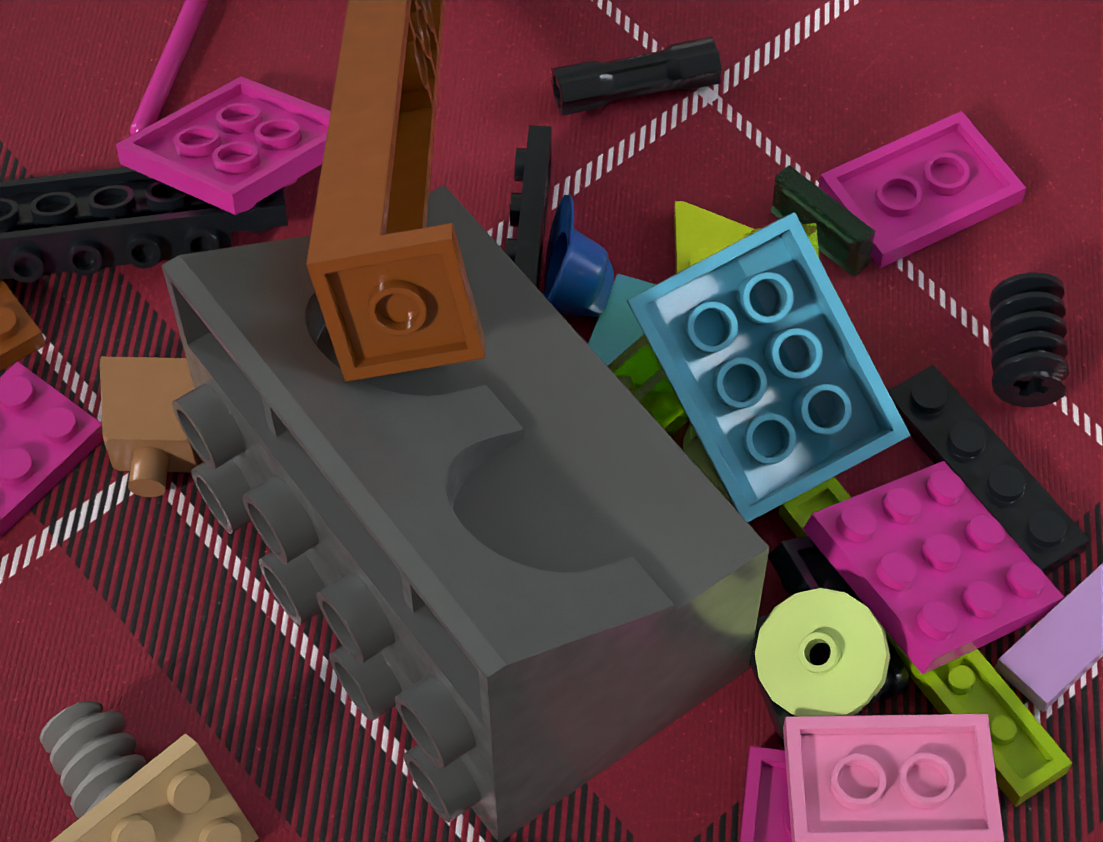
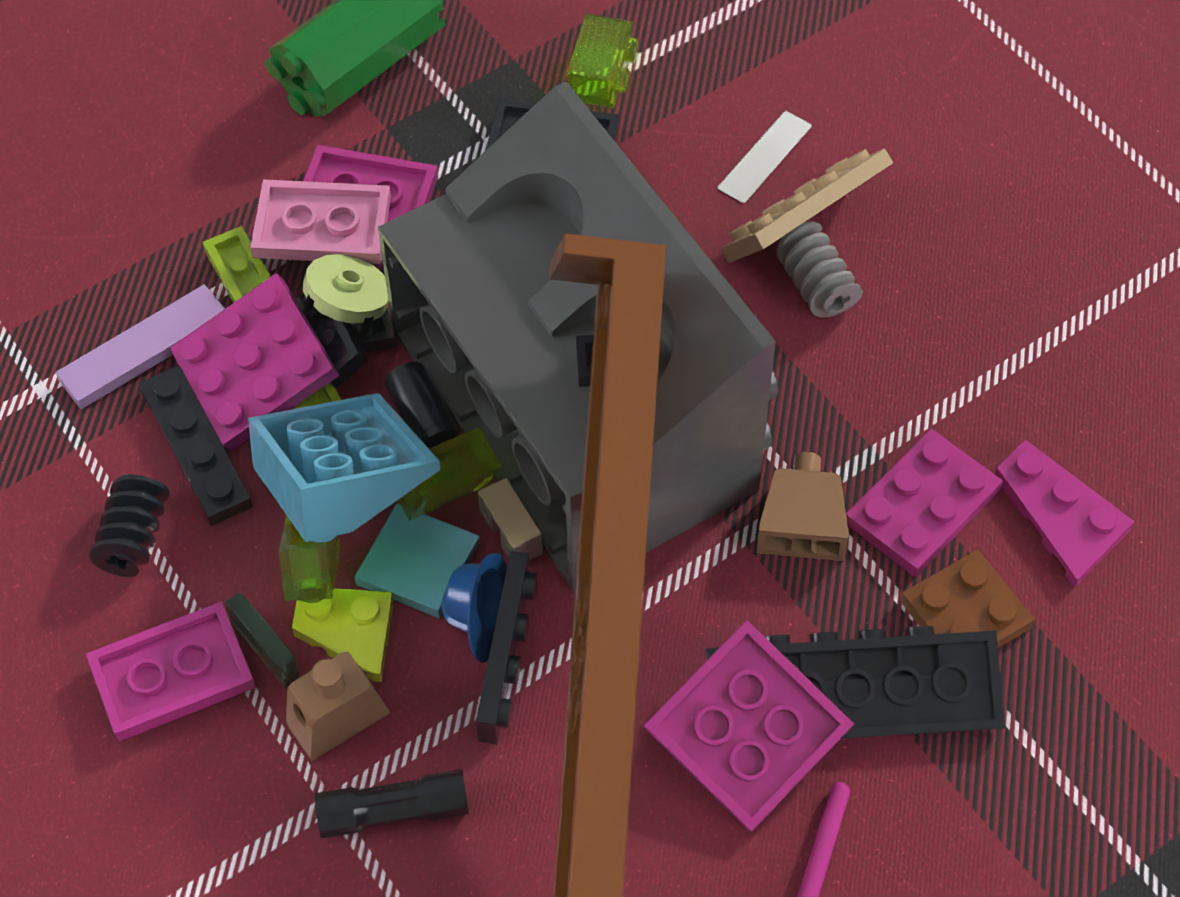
camera: 175 degrees left, 0 degrees up
(716, 146) = (331, 705): none -> medium nougat torso

